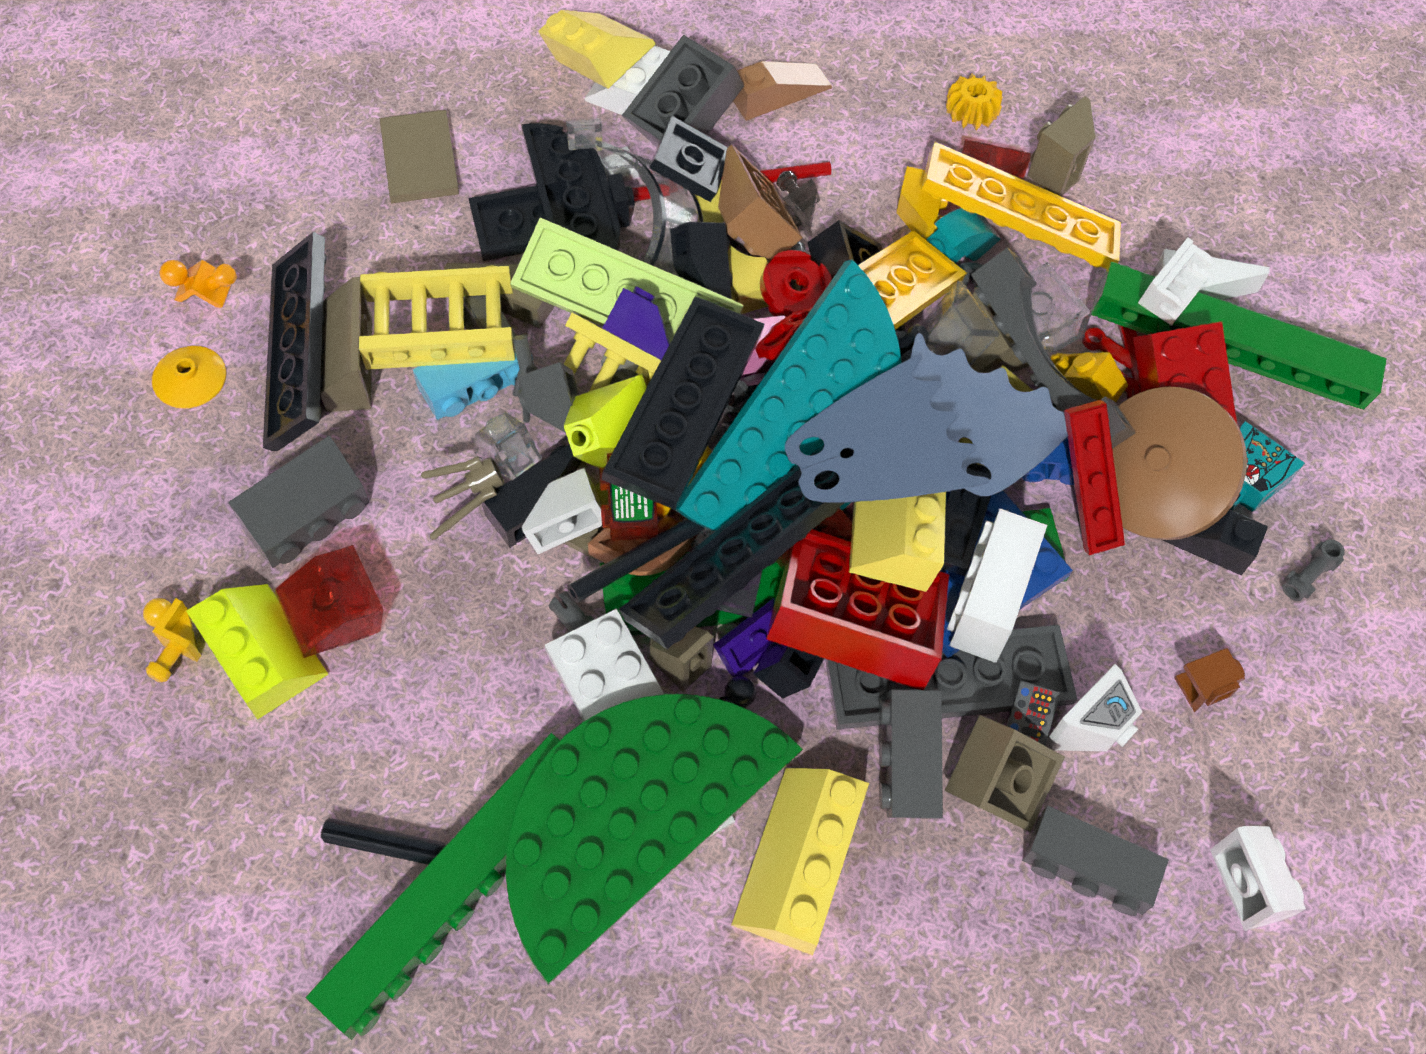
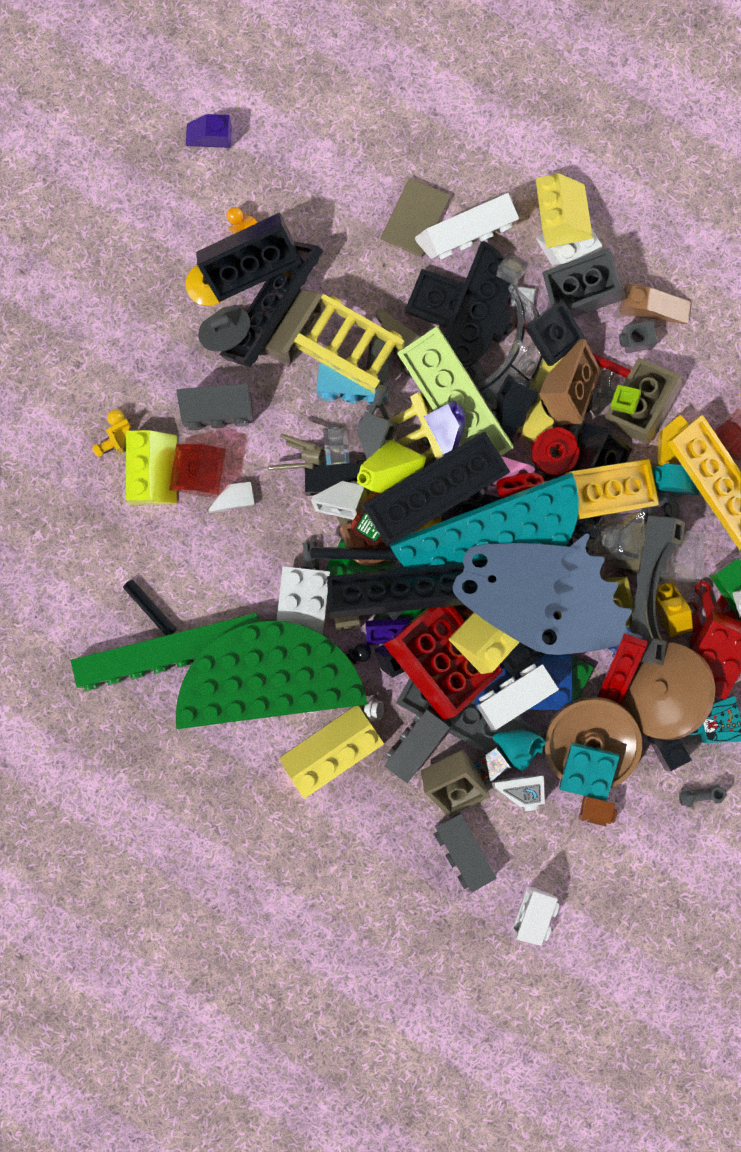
camera: 40 degrees right, 20 degrees up
(74, 203) = (209, 131): none -> dark purple slope
(226, 297) = (248, 257): none -> black slope
(249, 410) = (224, 329): none -> dark grey shield
(407, 608) = (234, 496): none -> white slope
(492, 115) = (467, 227): none -> white slope
(789, 124) = (644, 330): none -> dark grey brick
(815, 754) = (374, 709): none -> white plate
(833, 180) = (625, 399): none -> lime plate
(853, 178) = (658, 393): none -> dark tan slope
(1048, 658) = (520, 746): none -> teal hat
(1133, 595) = (595, 724): none -> medium nougat dish
(1158, 632) = (589, 771): none -> teal plate

